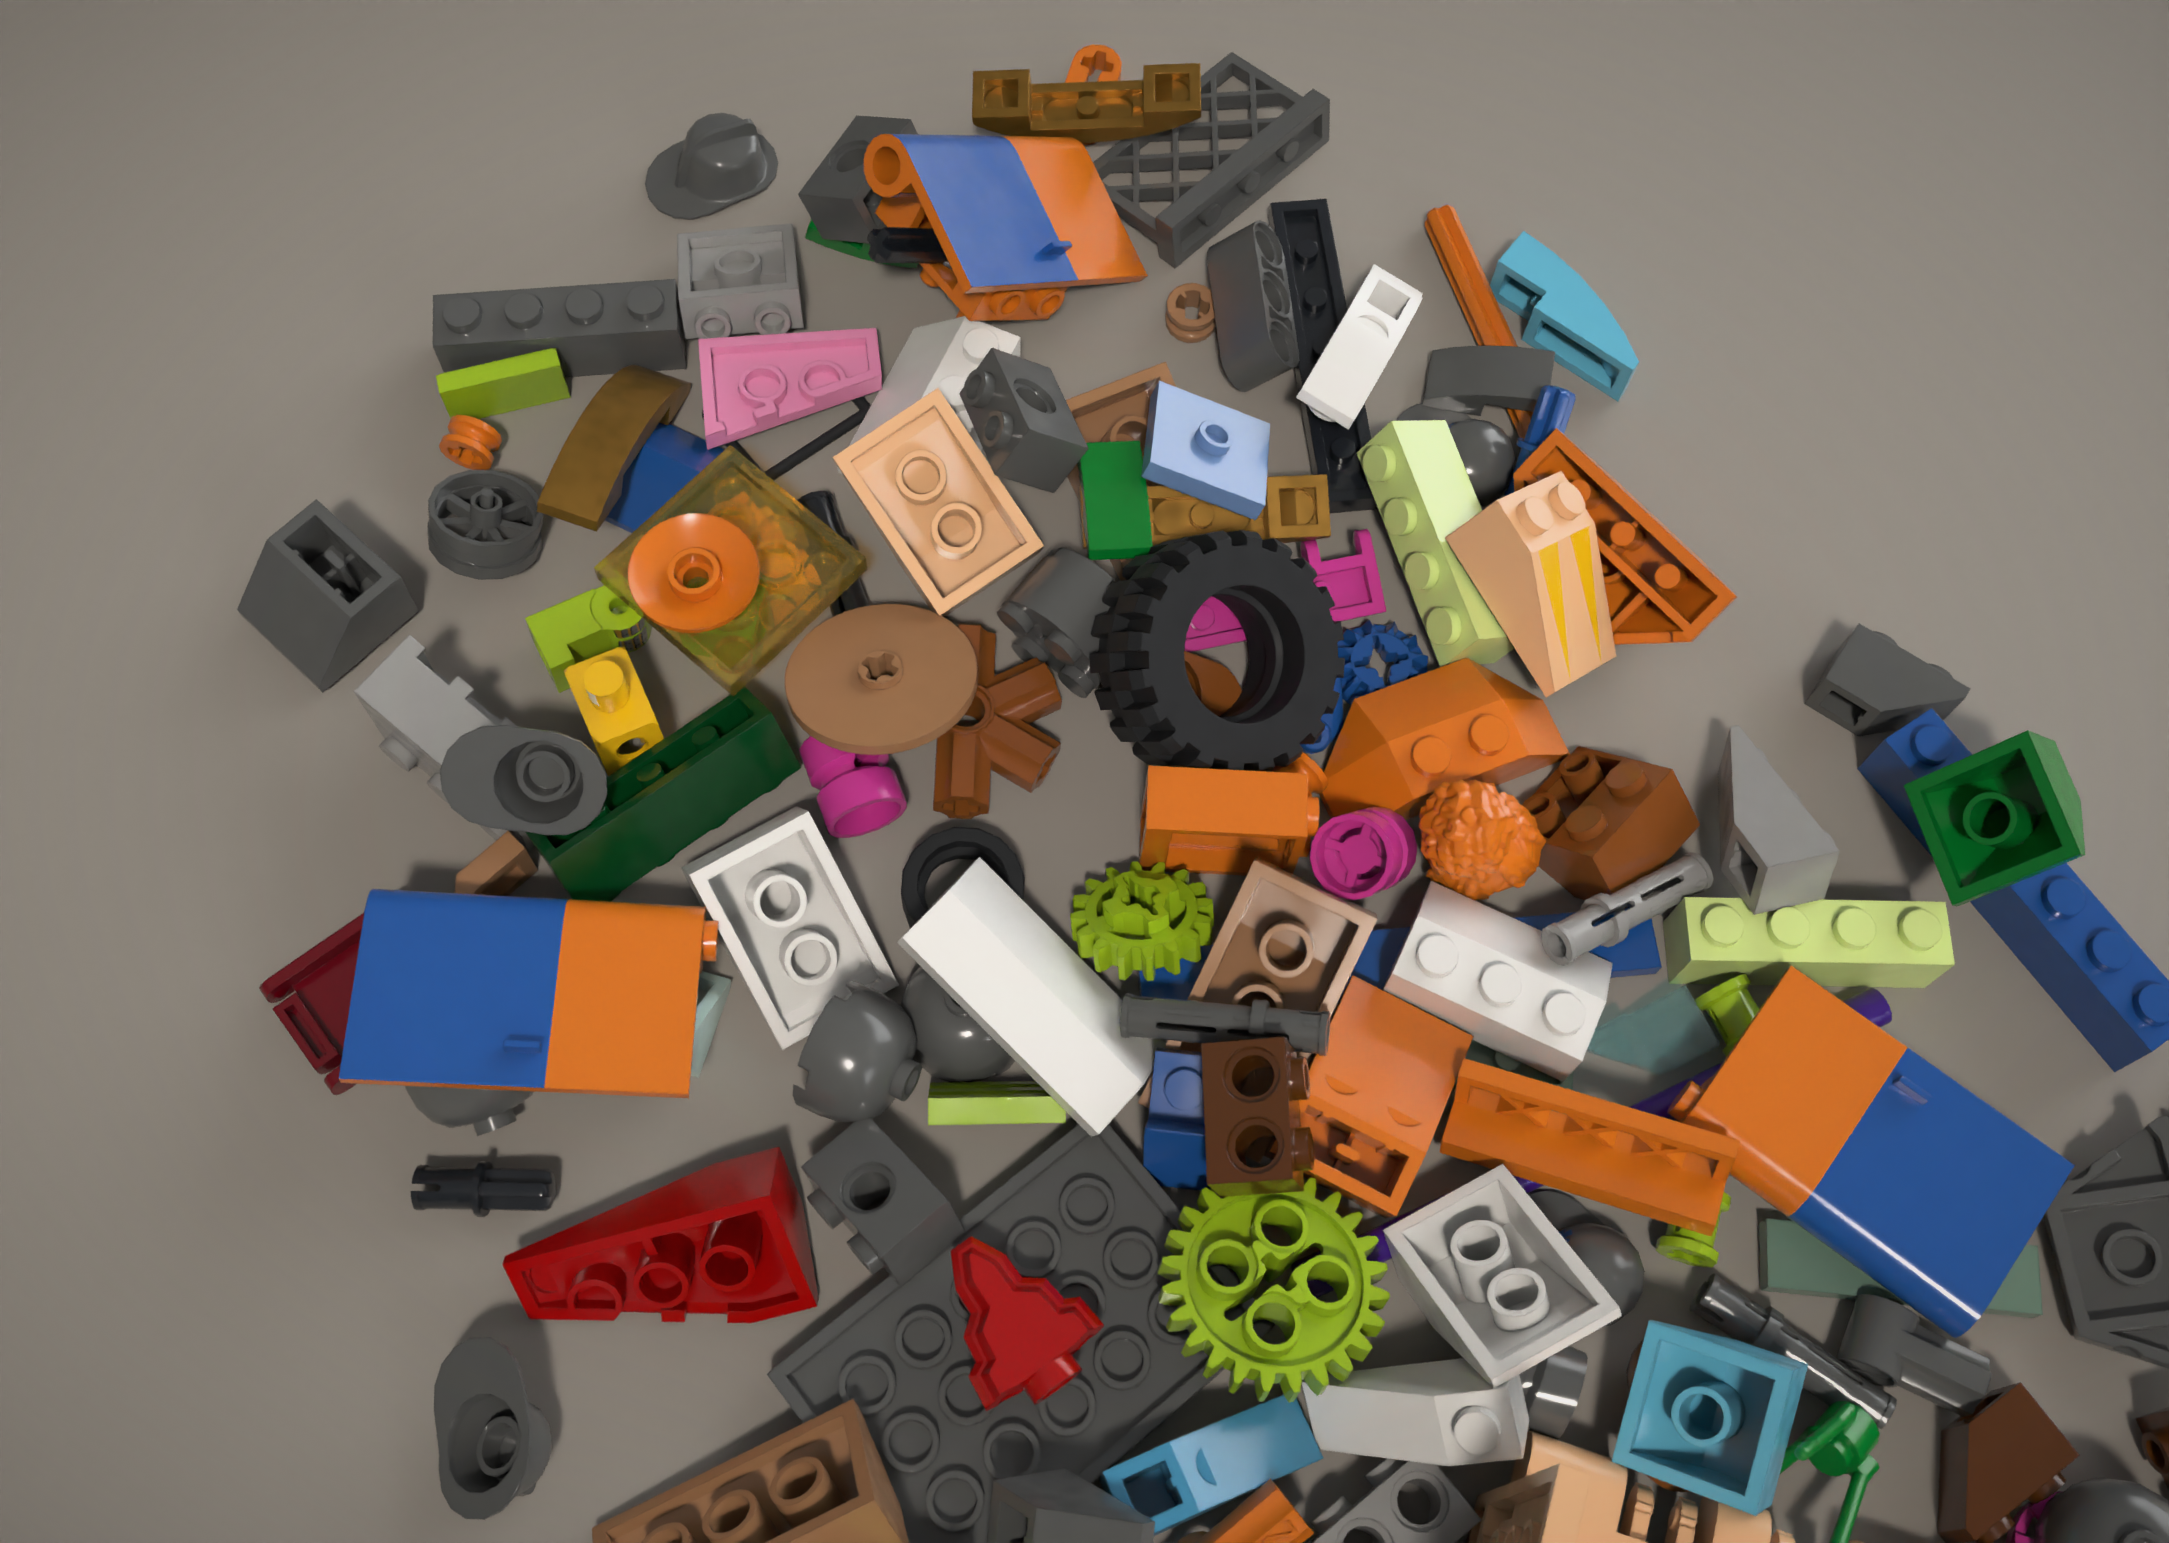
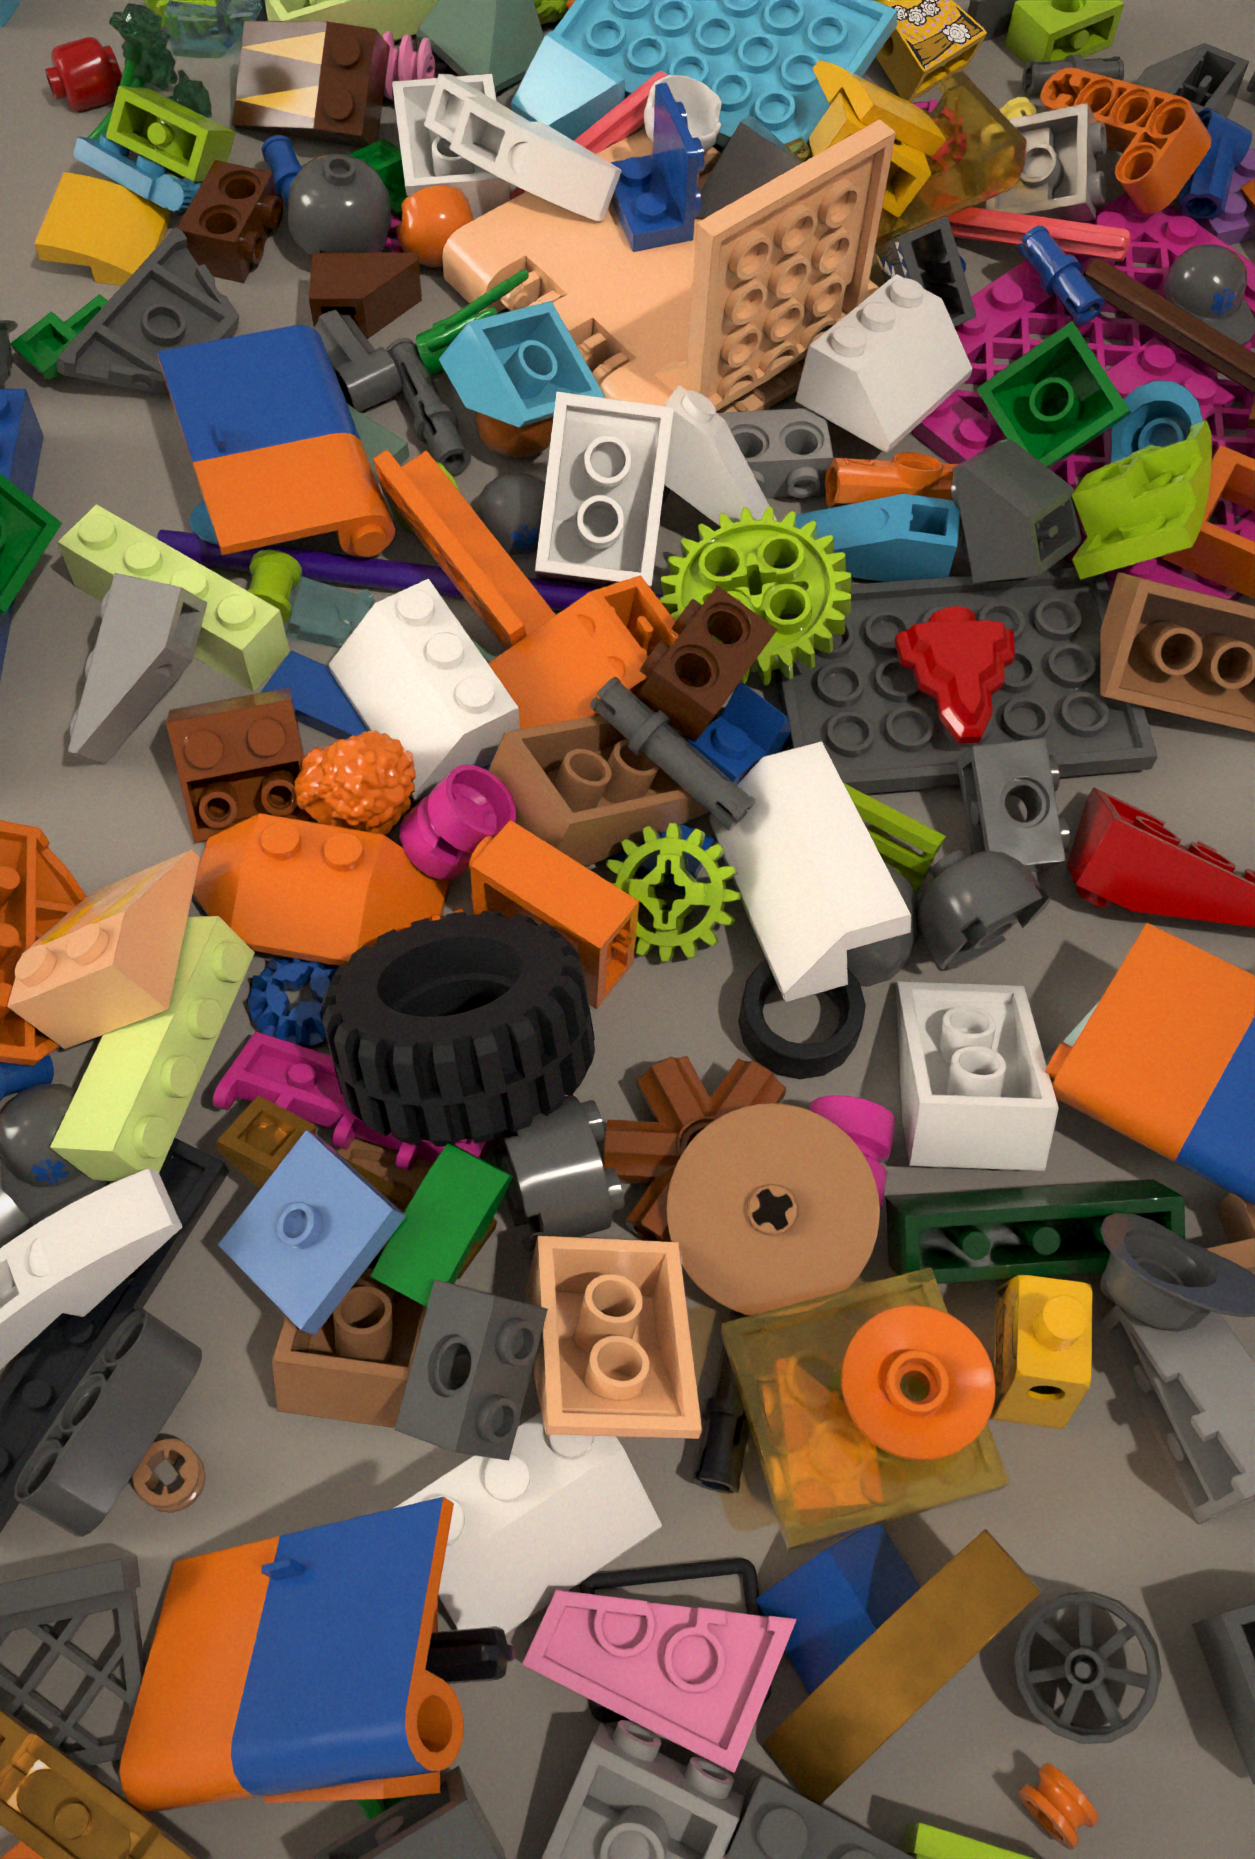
camera: 145 degrees left, 5 degrees down
(585, 629) = (1044, 1480): lime leg -> none
(1575, 933) = (311, 668): light grey pin -> none

